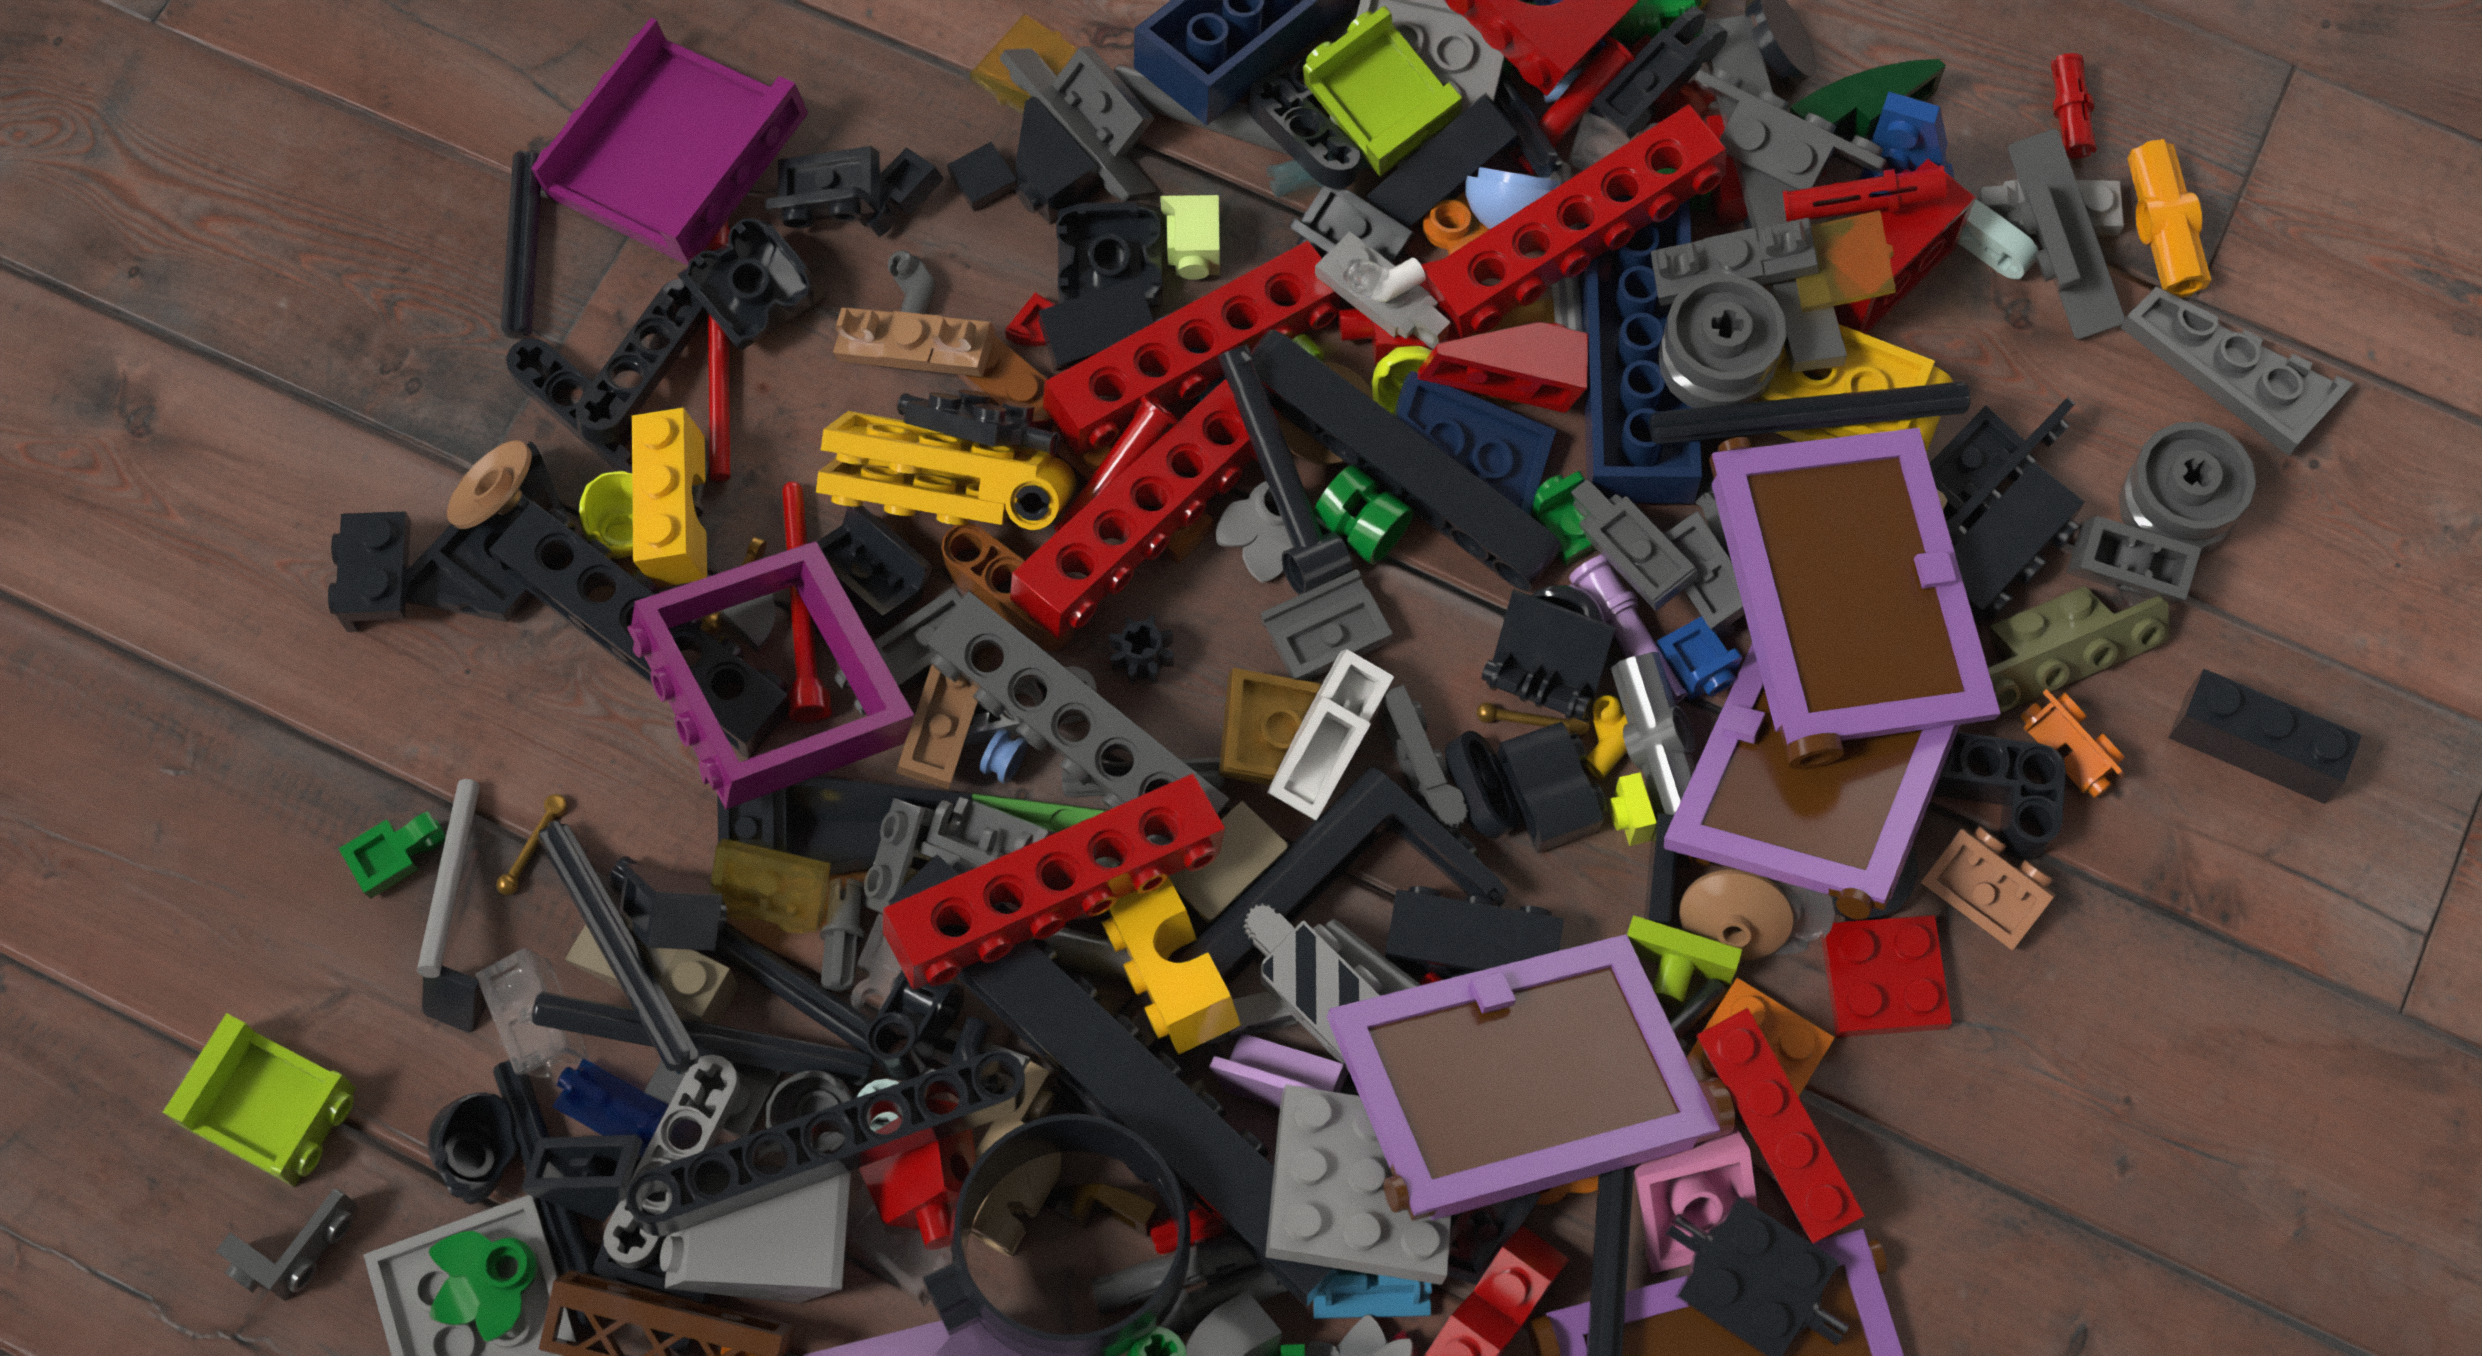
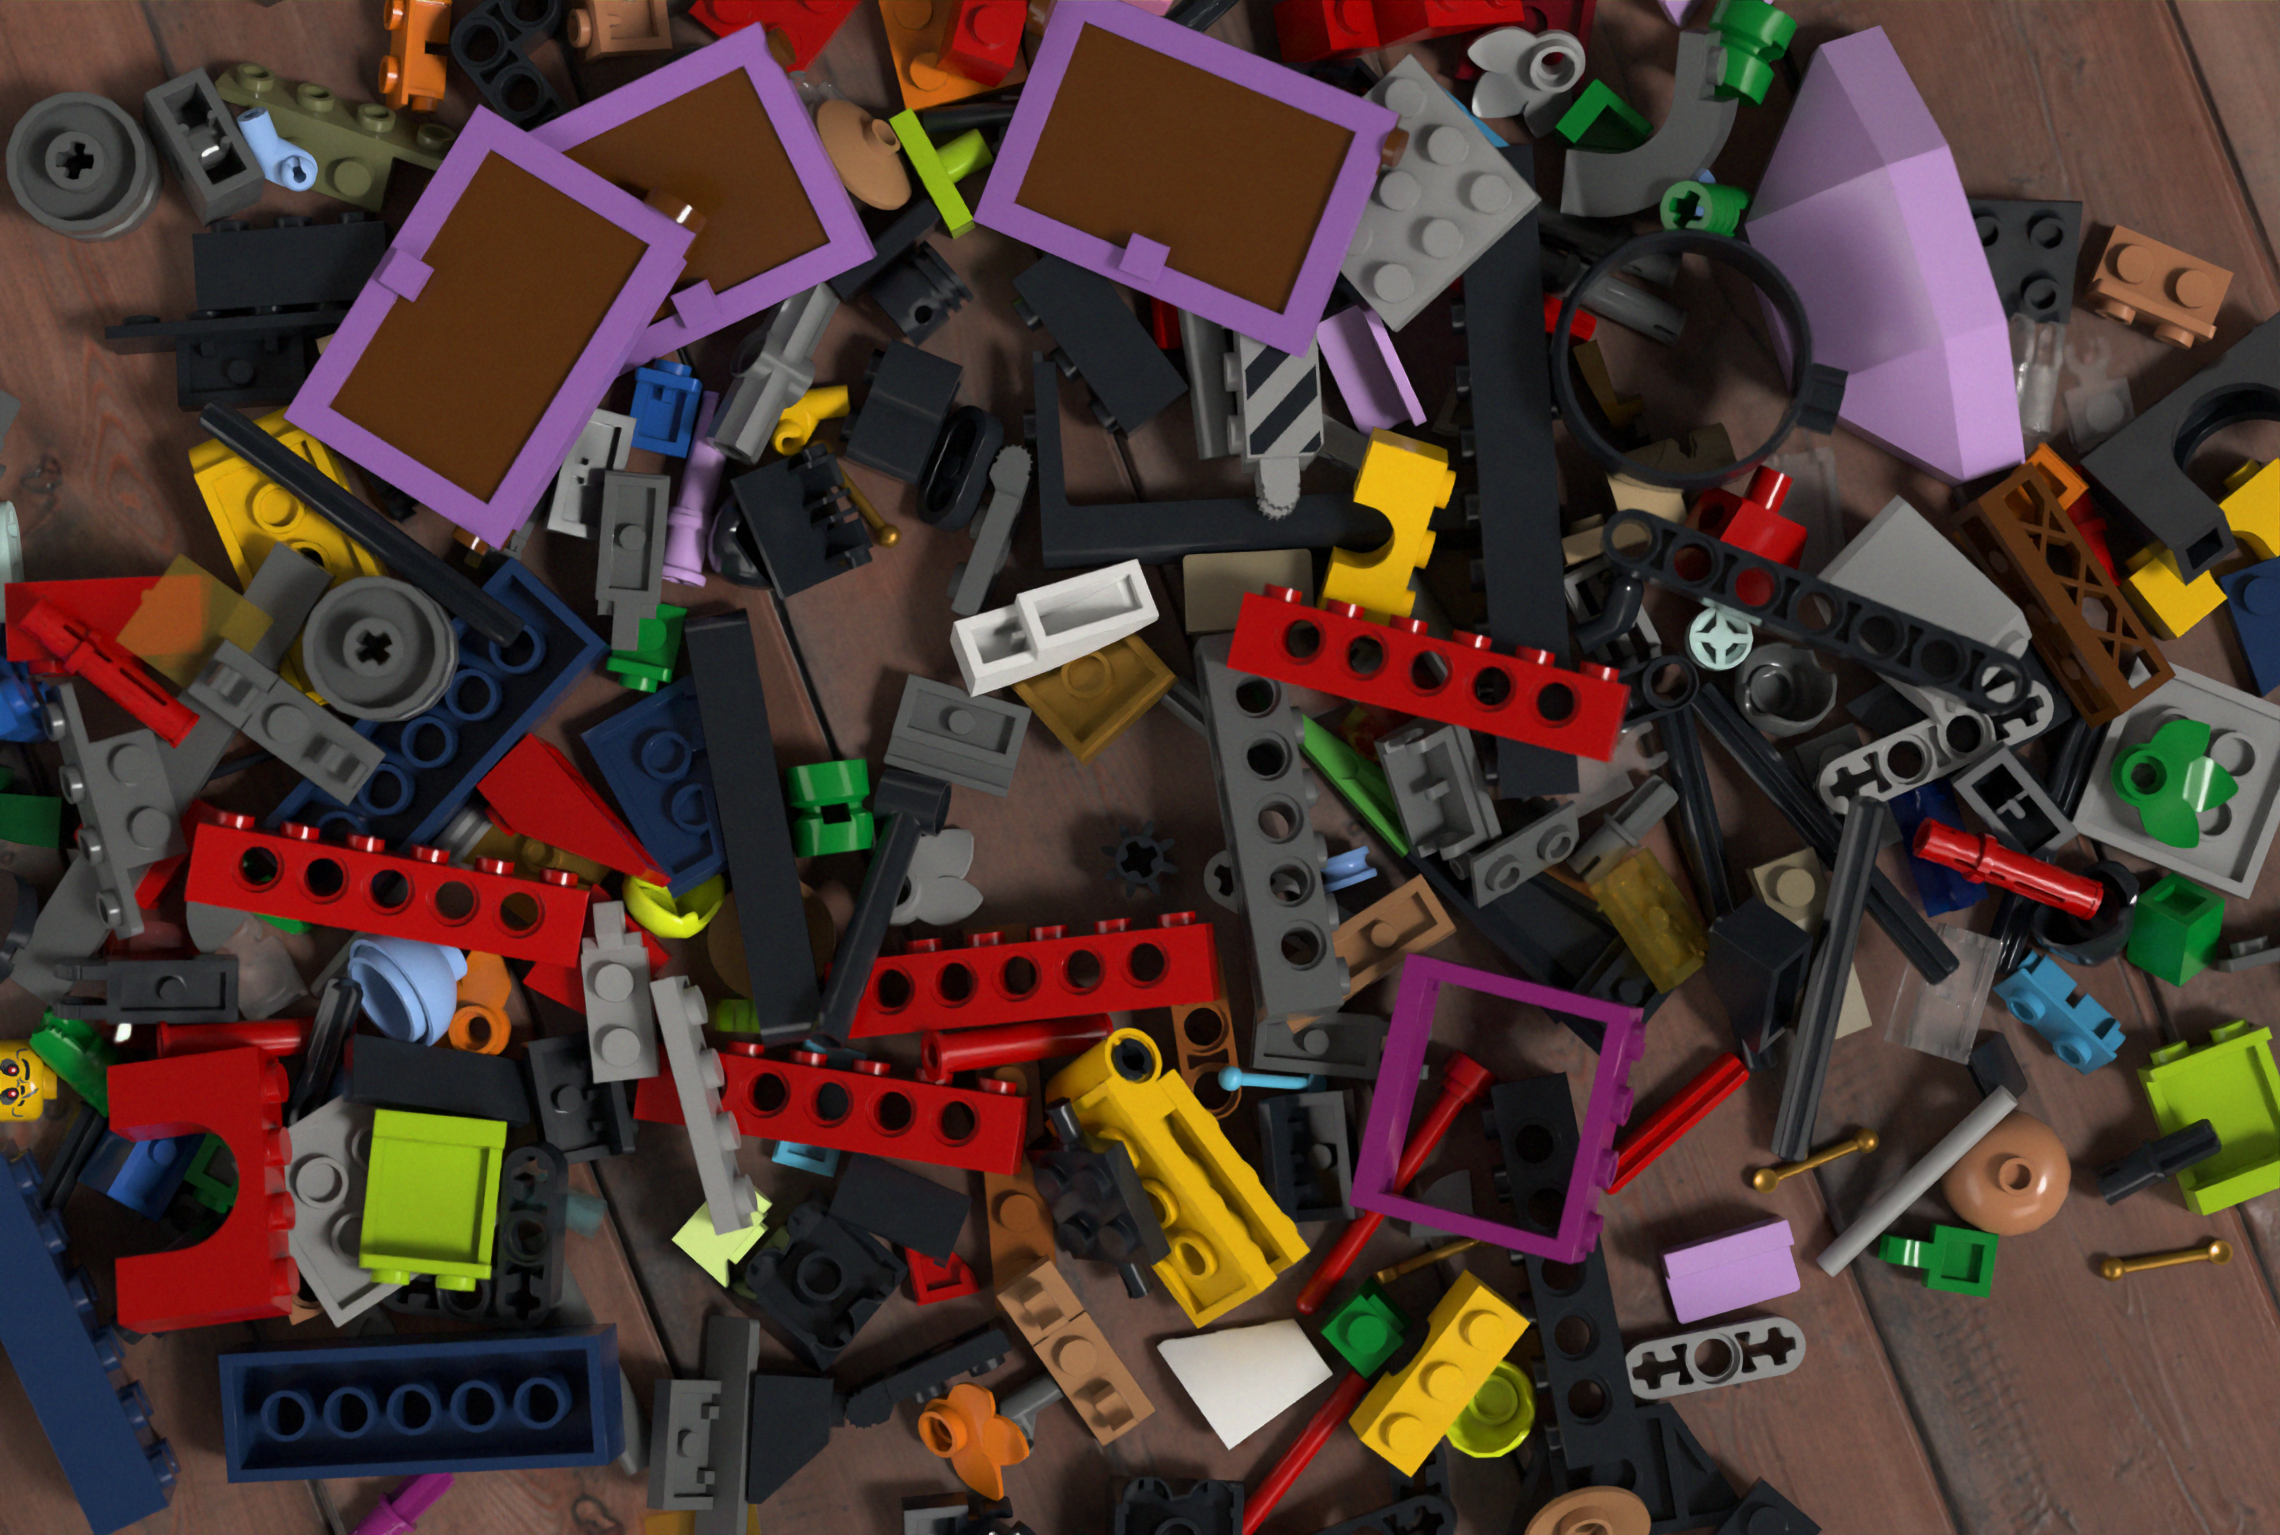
camera: 140 degrees left, 20 degrees up
(201, 1015) = (2216, 1252): none -> pearl gold hinge
(290, 1029) = (2157, 1161): none -> black axle
(383, 938) = (2010, 1177): none -> nougat cylinder
(400, 1193) = (2176, 929): none -> green panel
(414, 1072) = (2079, 1034): none -> dark azure hinge
(461, 689) = (1762, 1362): none -> light grey beam
(534, 731) = (1730, 1269): none -> lavender panel
(569, 1111) = (1983, 859): none -> red pin
(650, 785) = (1677, 1117): none -> red axle
(741, 498) = (1366, 1327): none -> green window
(790, 417) = (1246, 1373): none -> white slope
(947, 243) = (973, 1436): none -> orange plate
(959, 557) = (1232, 1078): none -> medium azure hinge
(982, 176) = (857, 1476): black tile -> none
(994, 257) = (925, 1372): none -> black hinge
(1273, 267) = (711, 1130): none -> light grey plate
(1381, 282) = (625, 993): arm -> none
(1613, 867) = (920, 294): none -> black piece
(1632, 809) = (855, 330): neon yellow plate -> none
(2086, 588) = (278, 158): none -> light blue arm

